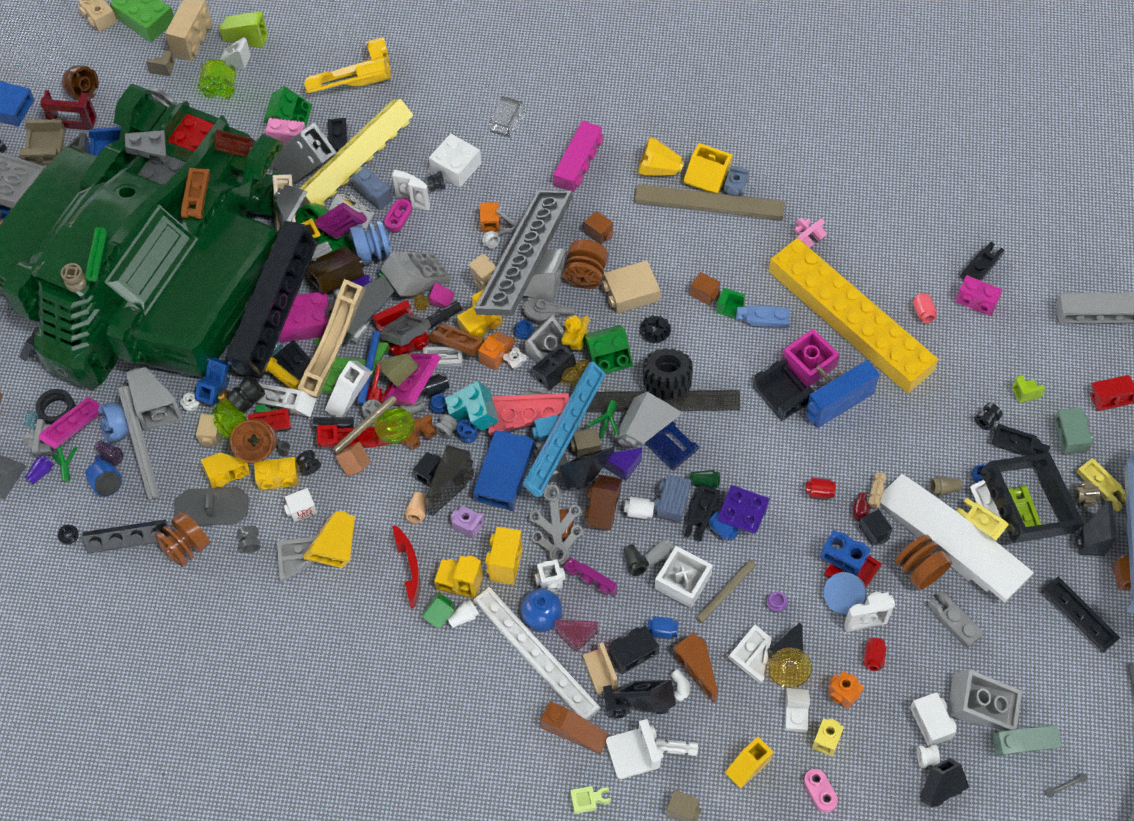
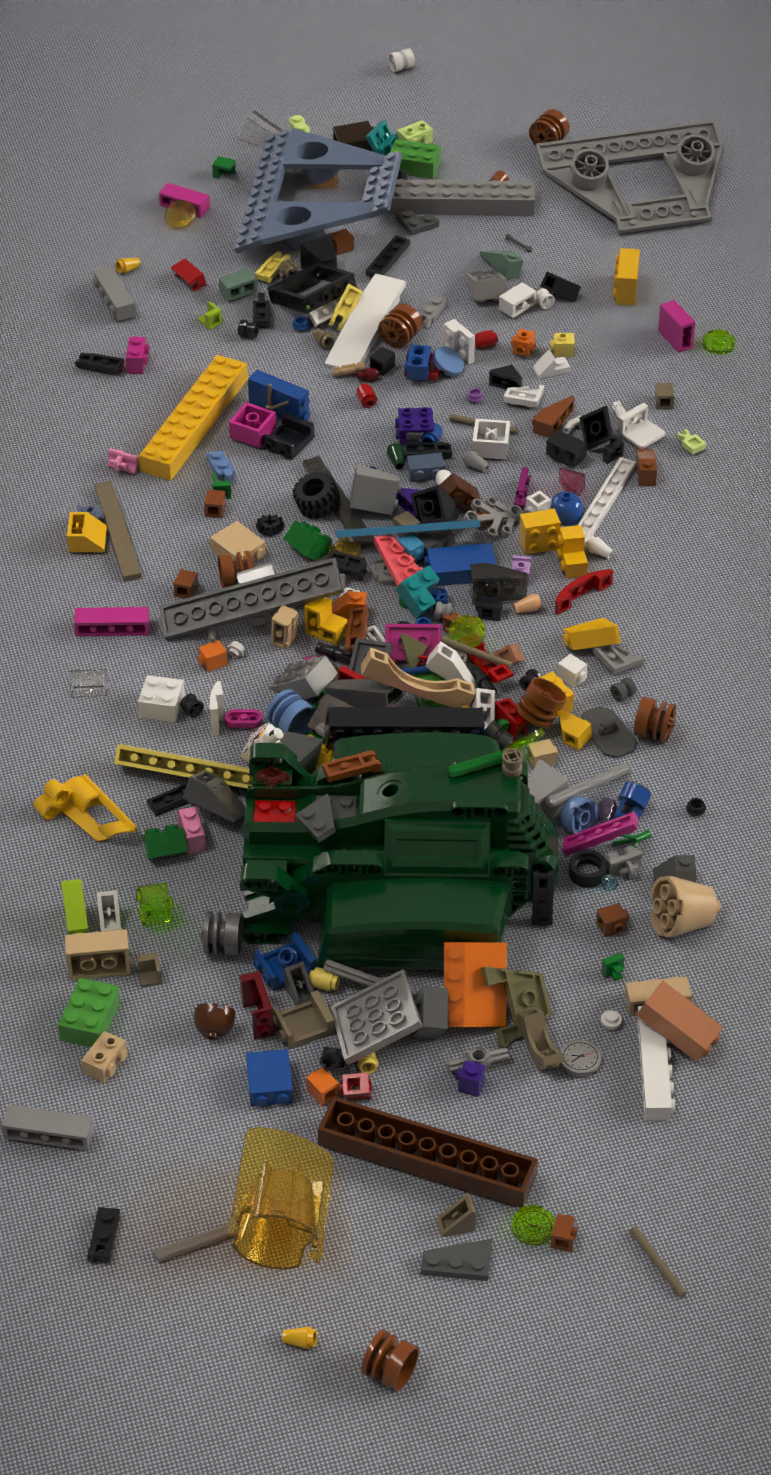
camera: 115 degrees left, 15 degrees down
(39, 468) = (653, 852): dark purple cone -> none
(122, 536) = (680, 769): black plate -> none
(339, 220) = (285, 720): magenta plate -> none
(372, 188) = (224, 742): sand blue brick -> none
(438, 610) = (606, 559): panel -> none
(575, 331) = (305, 557): yellow hips -> none
(600, 669) = (591, 462): tan panel -> none
(608, 416) = (377, 519): green plant -> none
(635, 562) = (492, 472): pearl dark grey cone -> none
(659, 159) = (92, 568): yellow cone -> none
(663, 627) = (536, 442): blue brick -> none
(749, 762) = (609, 371): yellow slope -> none
(790, 676) = (525, 372): clear yellow dish -> none
(820, 790) = (602, 343): bright pink plate -> none
(925, 308) = (164, 381): coral brick -> none

